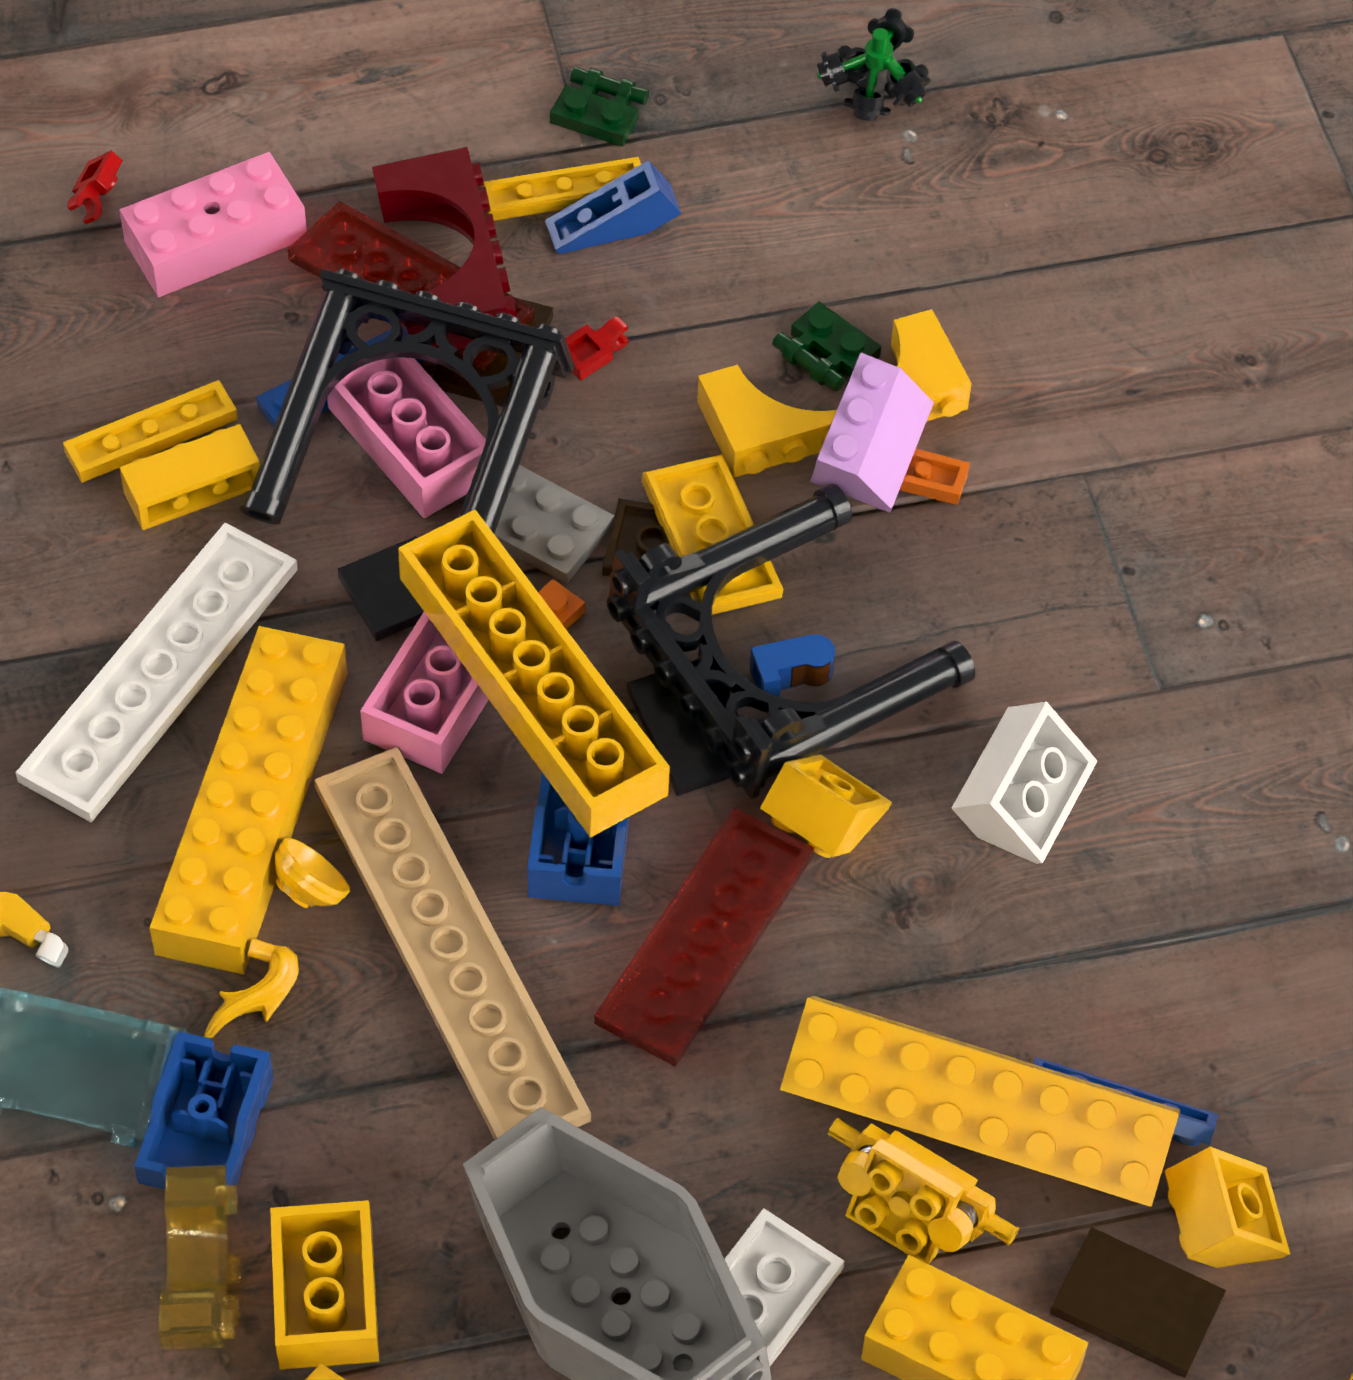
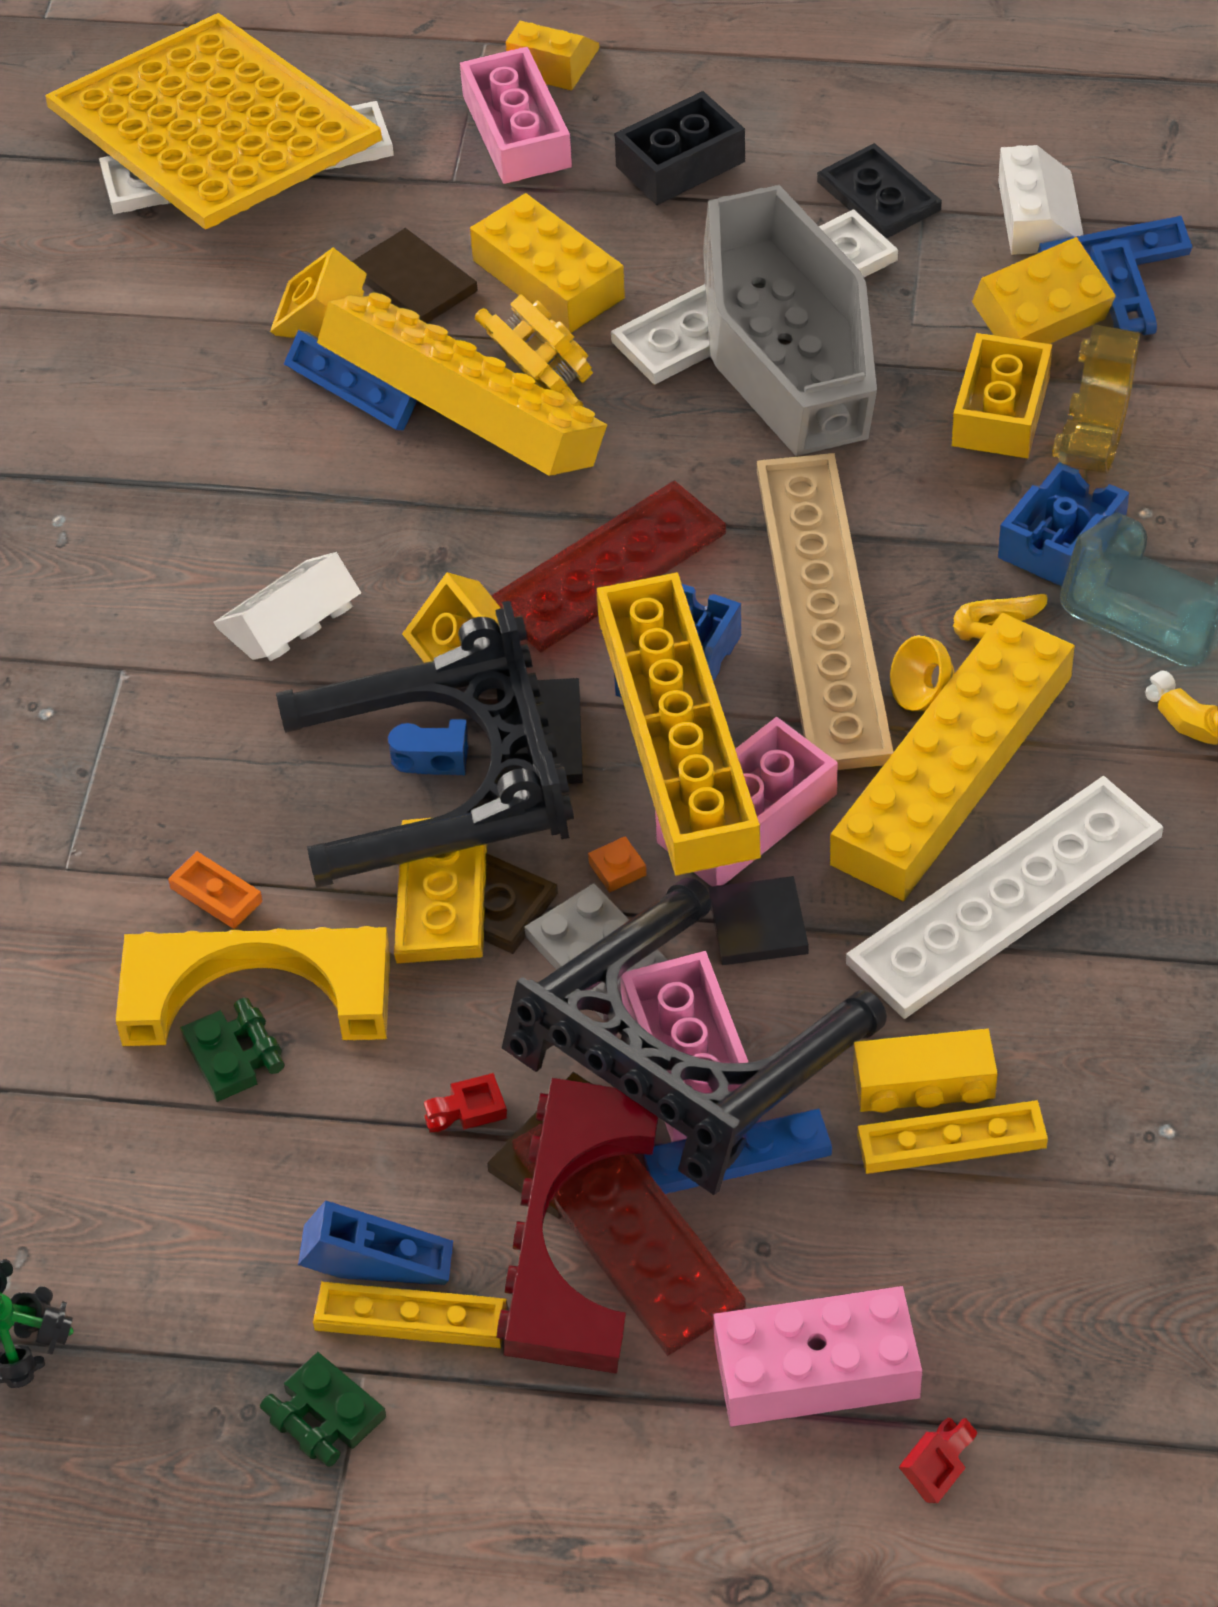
camera: 155 degrees left, 5 degrees down
(873, 434) = (258, 899): lavender slope -> none

